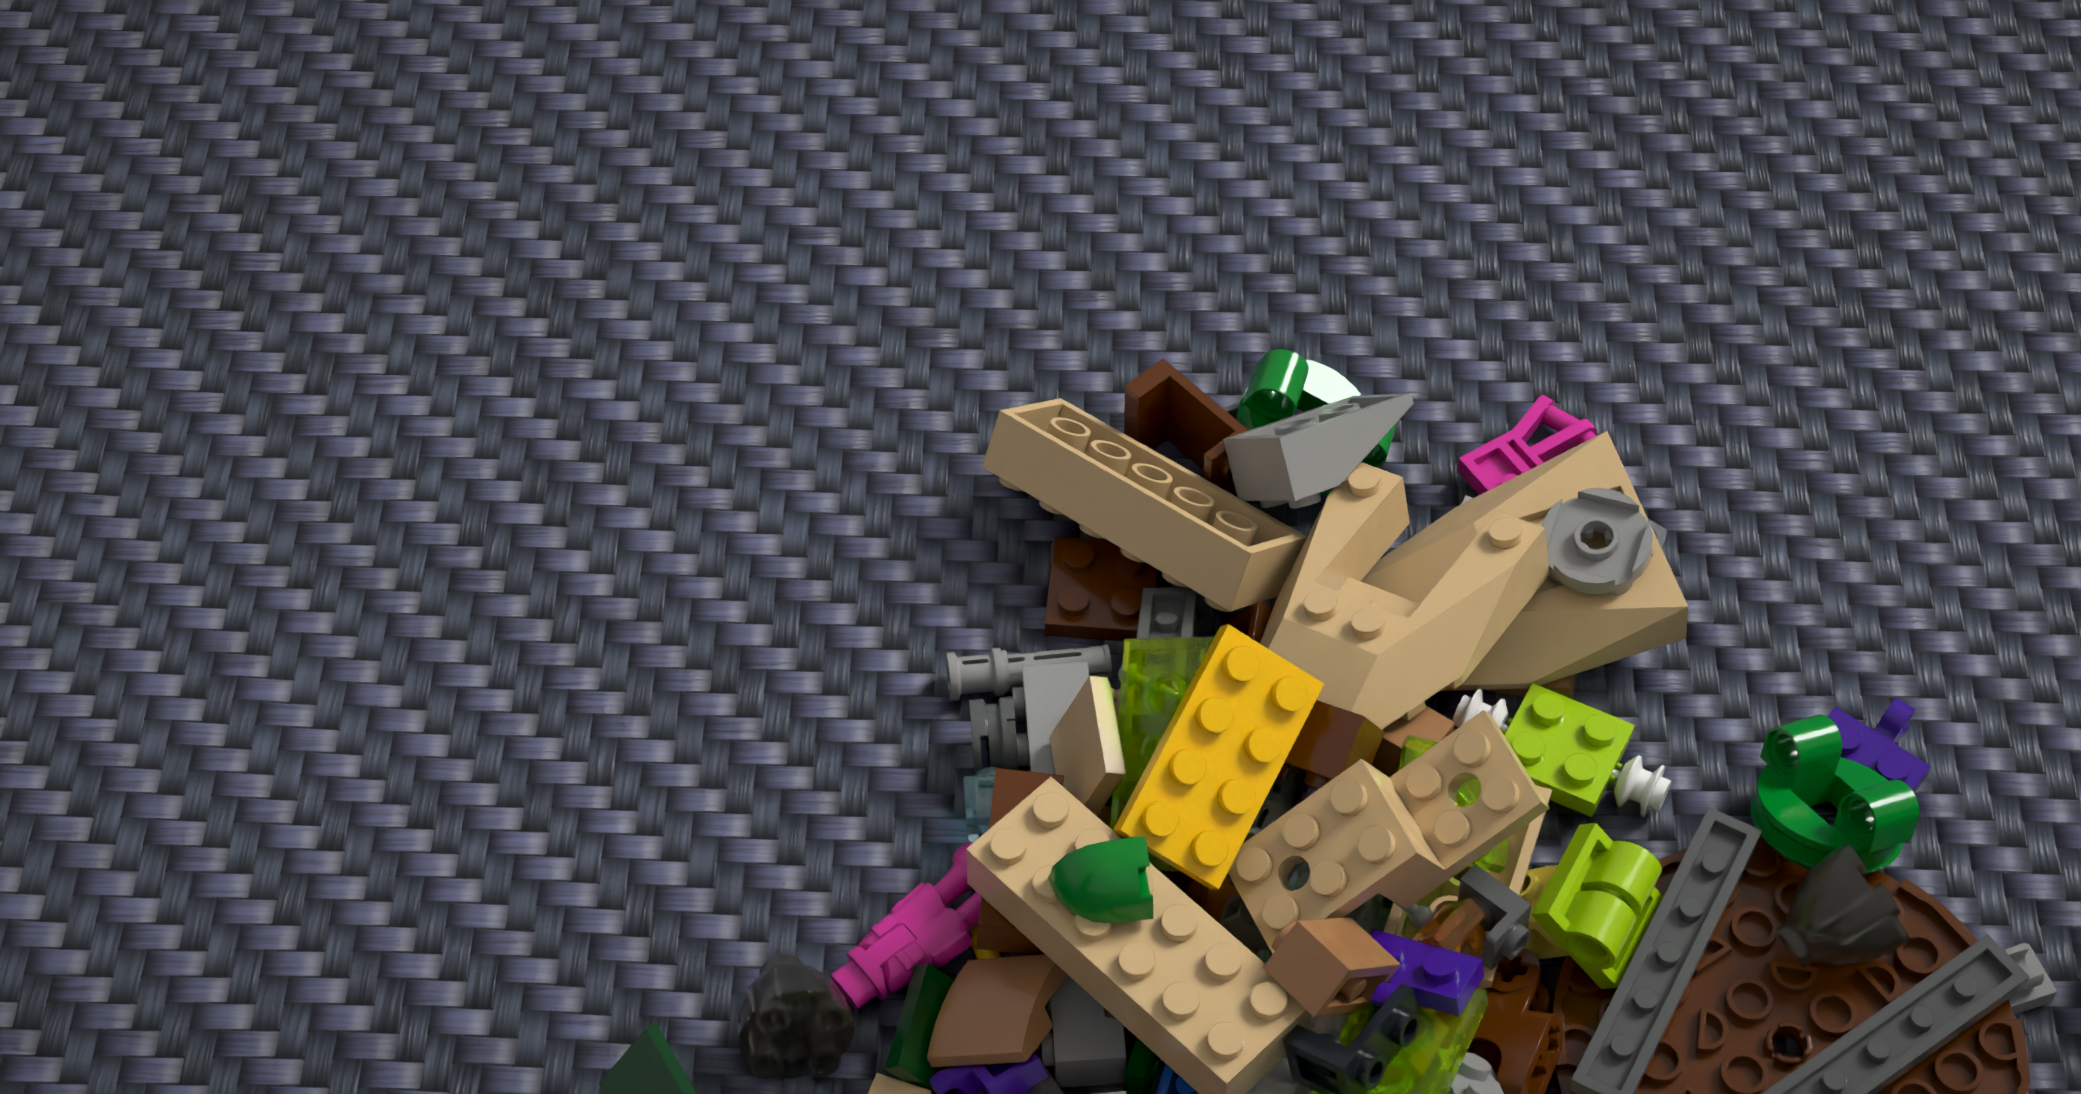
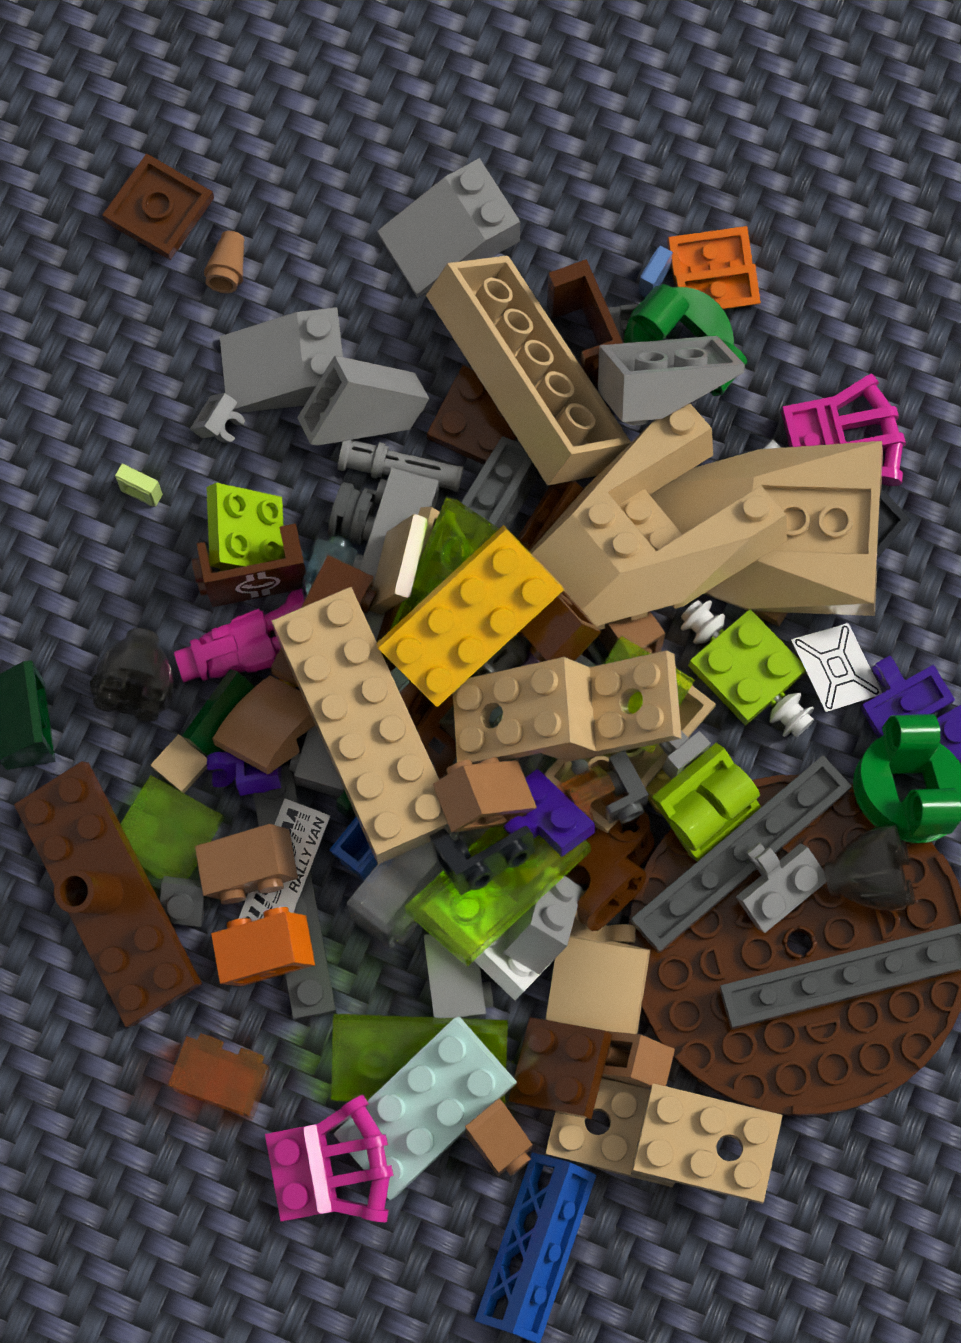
camera: 20 degrees right, 20 degrees up
(604, 484) = (158, 206): none -> reddish brown plate
(705, 795) = (138, 485): none -> yellowish green tile
(715, 519) = (226, 263): none -> medium nougat cone
(771, 689) = (214, 416): none -> light grey tile
(836, 601) = (279, 359): none -> light grey slope
(868, 803) = (243, 527): none -> lime plate
(902, 848) = (252, 580): none -> reddish brown panel
(951, 605) = (361, 402): none -> light grey slope
(959, 397) = (451, 222): none -> light grey slope
(1105, 881) = (350, 686): green brick -> none
(1239, 368) = (655, 270): none -> medium blue tile
(1313, 333) = (717, 265): none -> orange slope
(1540, 848) = (683, 752): none -> light grey tile
(1601, 570) = (830, 554): light grey plate -> none
(1666, 716) = (836, 667): none -> white sticker
(1737, 975) = (781, 884): none -> light grey plate
(1778, 705) = (917, 695): none -> dark purple plate

